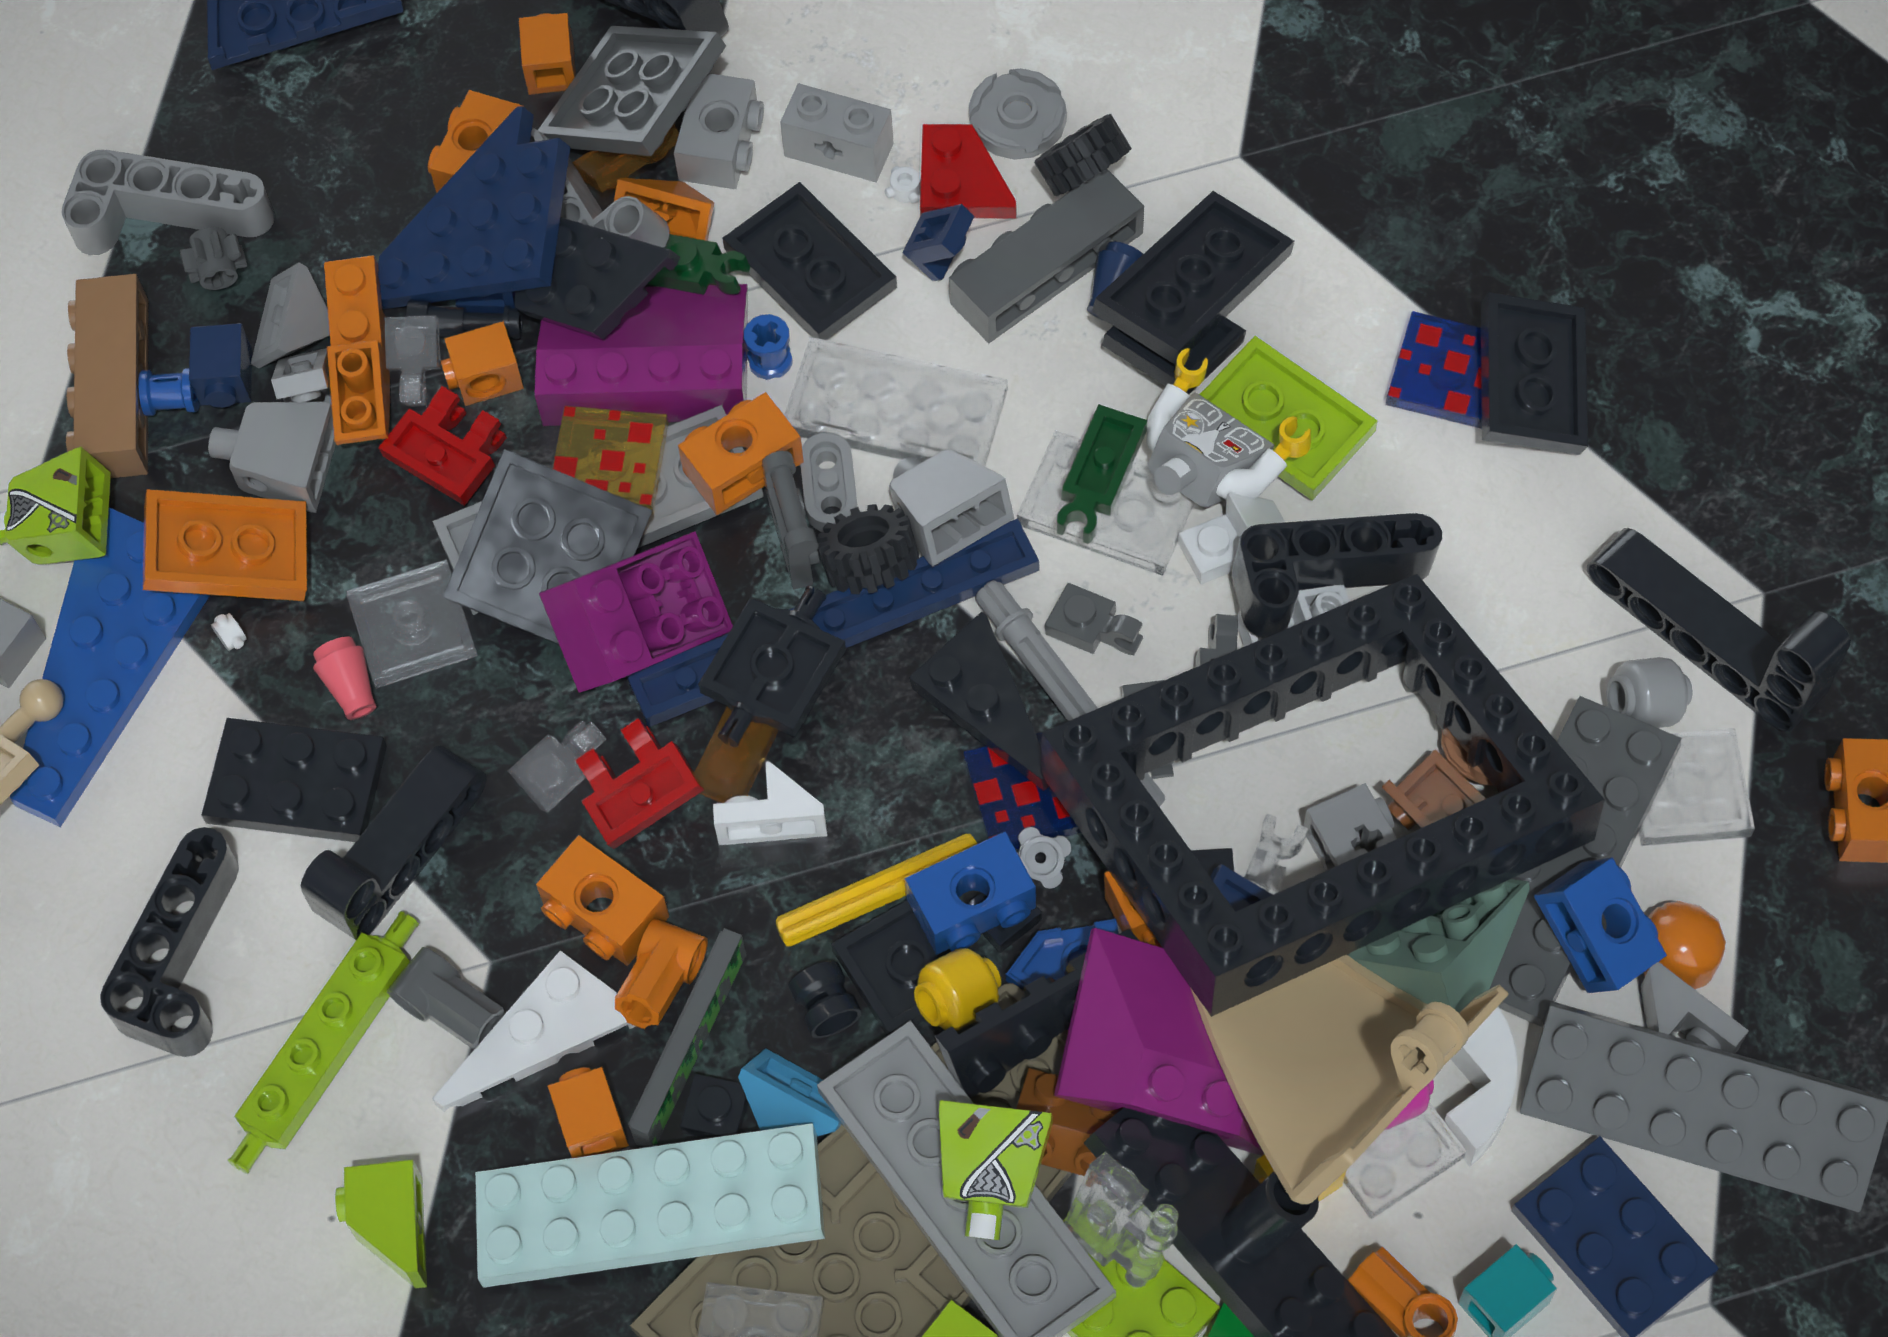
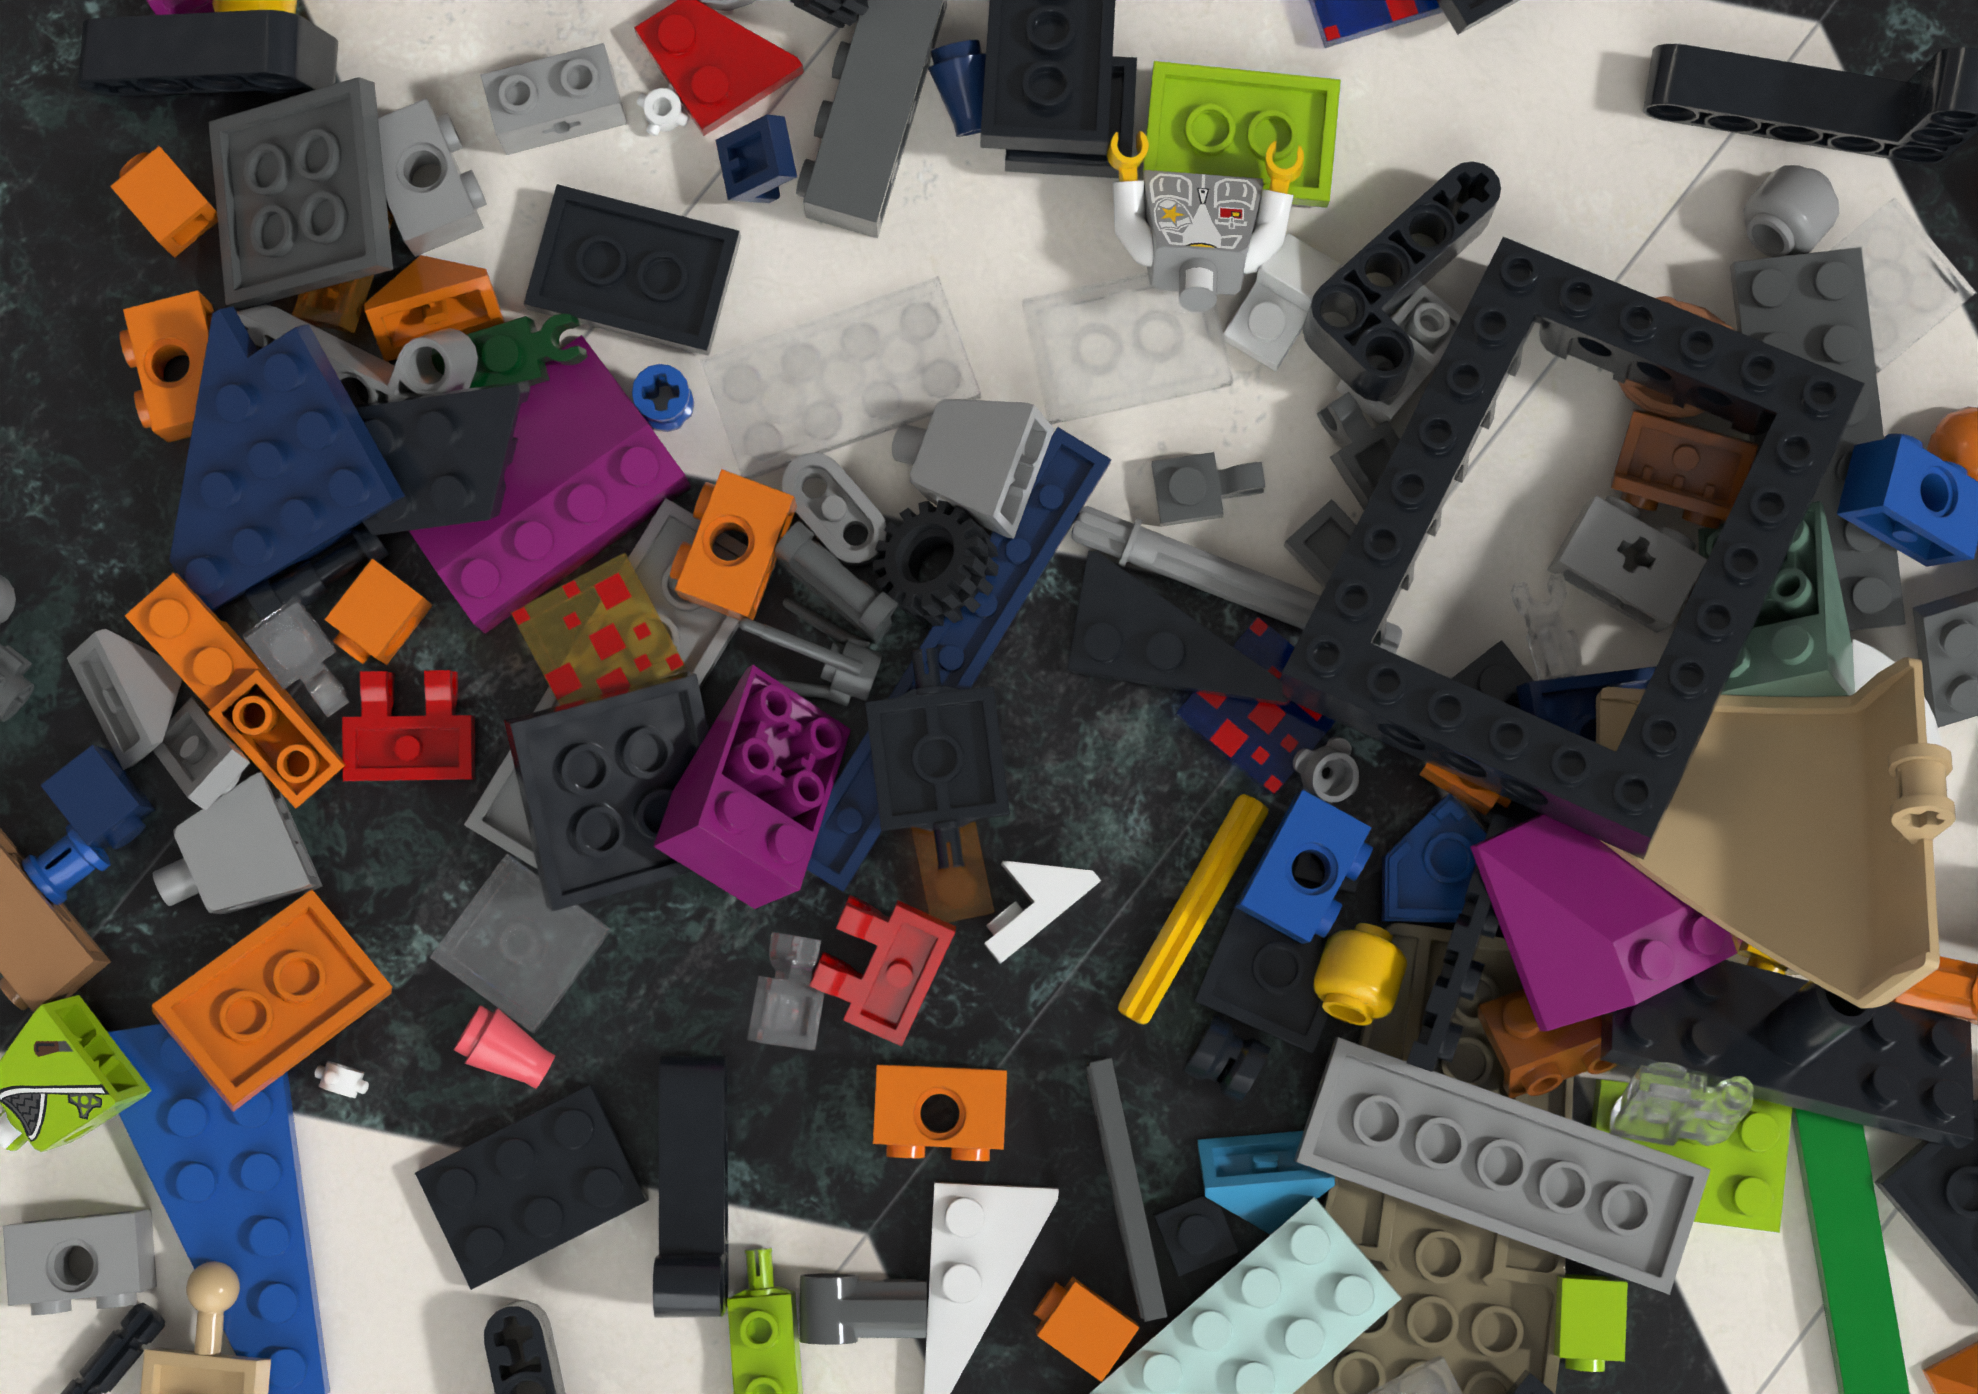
camera: 45 degrees left, 20 degrees up
(662, 964) = (1048, 1127): orange piece -> none
(756, 580) = (848, 666): none -> dark grey plant
(990, 1160) = (1527, 1133): lime torso -> none
(1100, 468) = (1110, 321): dark green plate -> none

